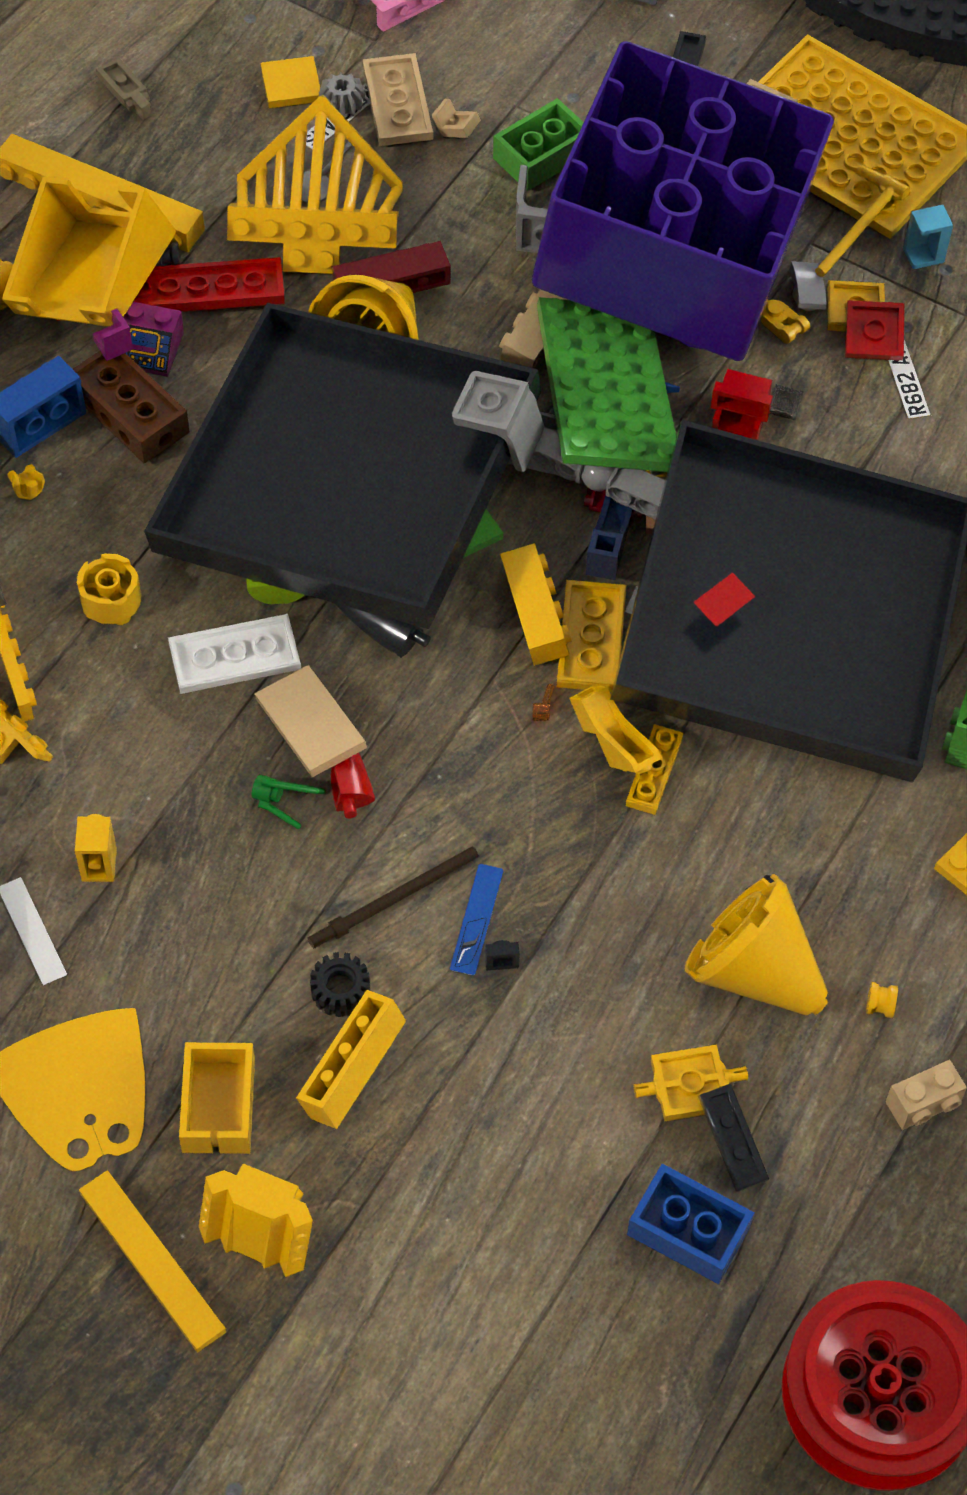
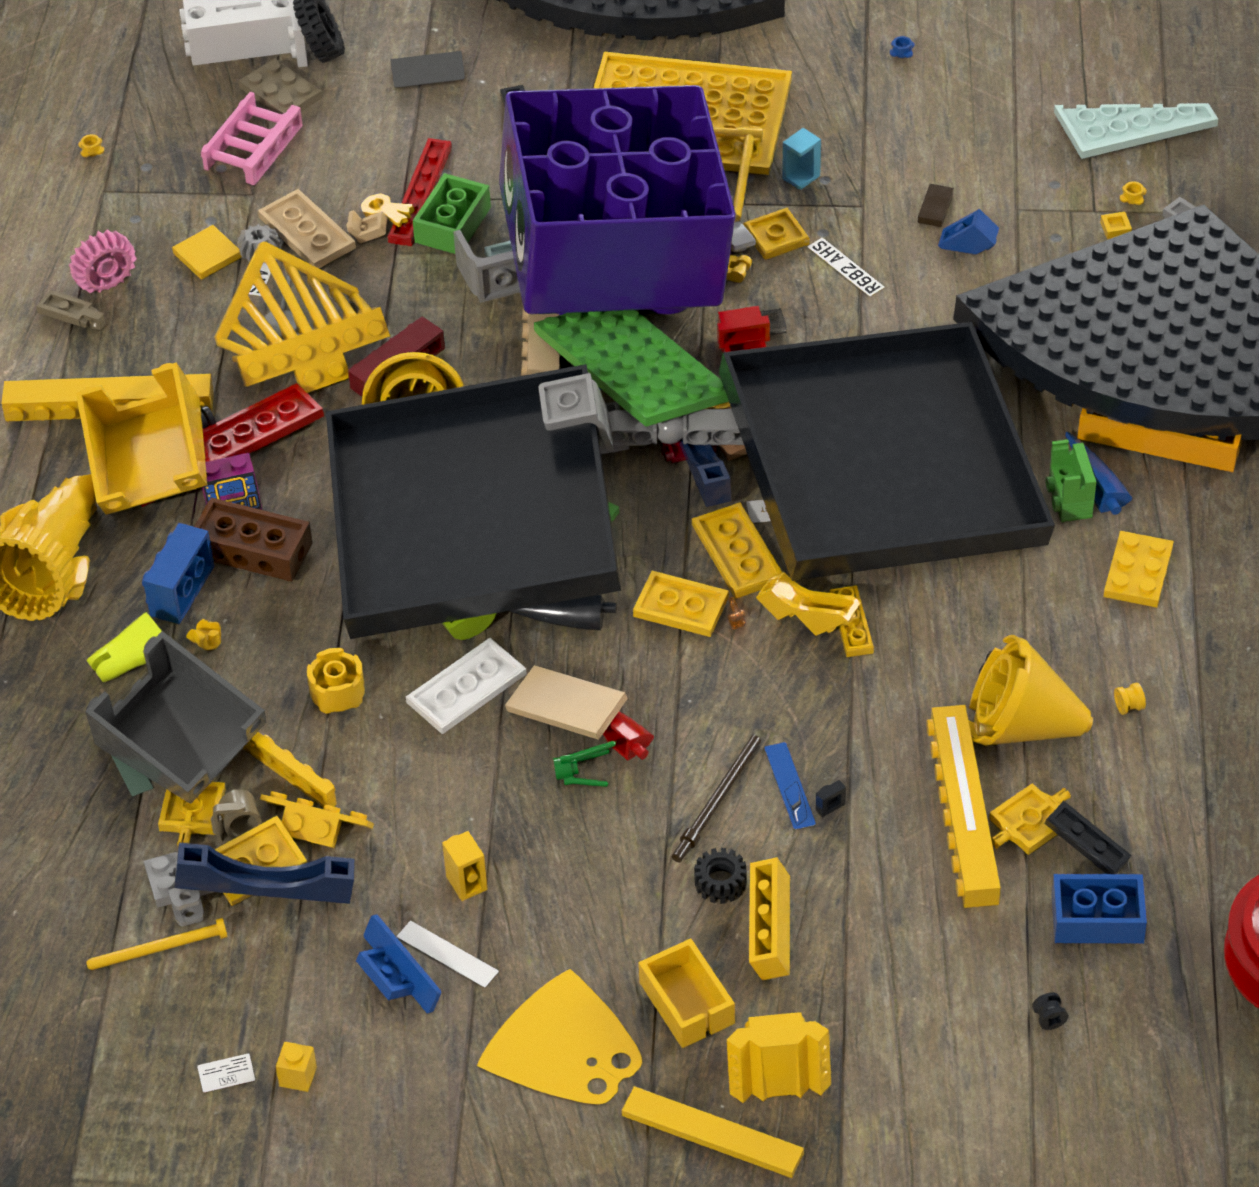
camera: 25 degrees left, 10 degrees down
(114, 339) = (215, 490): magenta panel -> none
(180, 49) = (102, 261): none -> bright pink gear
(485, 105) = (395, 212): none -> yellow piece
(495, 667) = (681, 603): none -> yellow plate
(534, 604) = (682, 543): yellow brick -> none
(556, 85) = (420, 187): none -> red tile
(568, 1311) = (1050, 1011): none -> black wheel
(630, 1036) = (964, 805): none -> yellow brick
(724, 599) = (837, 467): red sticker -> none
(874, 330) = (805, 242): red plate -> none
(926, 1095) = (1205, 745): tan brick -> none

